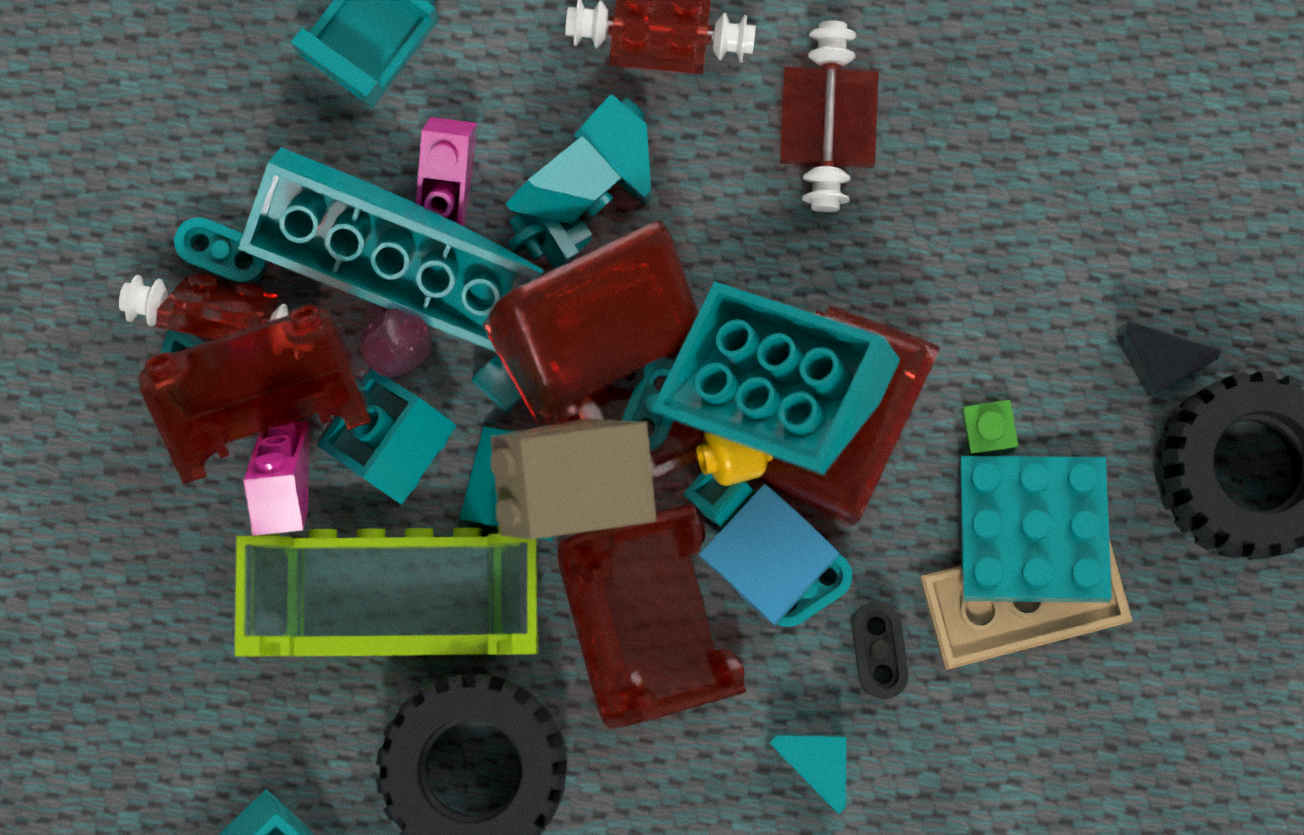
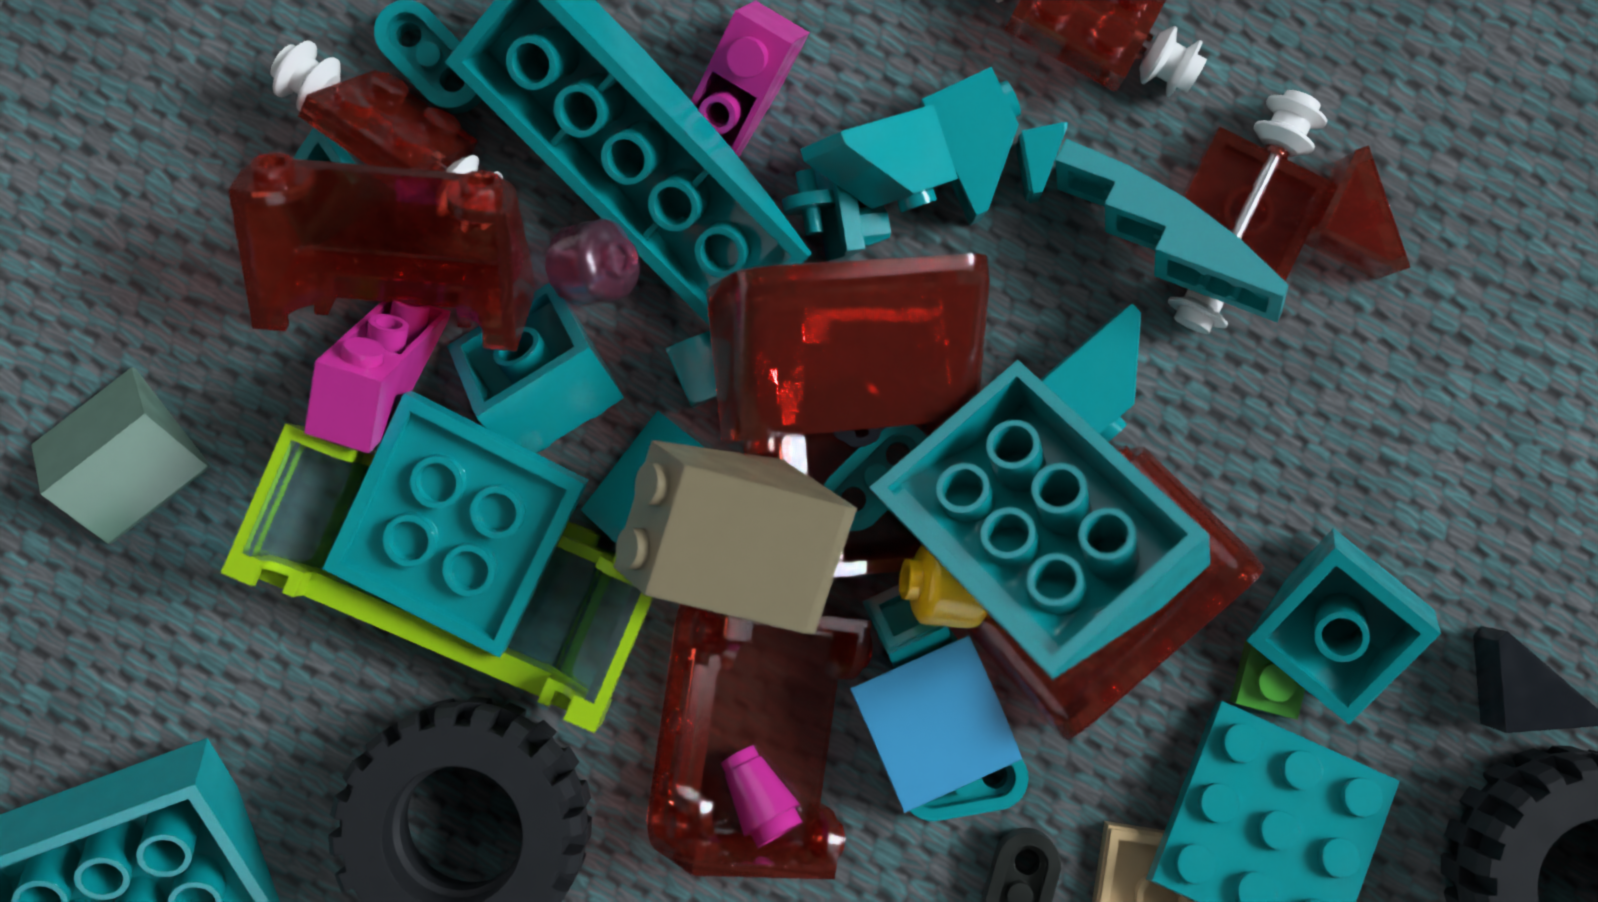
camera: 20 degrees right, 5 degrees up
(118, 622) = (116, 458): none -> sand green slope
(379, 558) = (454, 523): none -> teal plate
(669, 139) = (1036, 155): none -> teal slope
(670, 660) = (760, 798): none -> dark pink cone
(777, 267) = (1101, 374): none -> teal slope
(794, 154) = (1186, 241): none -> teal slope
(906, 91) = (1358, 220): none -> clear red slope
(1017, 368) = (1343, 627): none -> teal slope

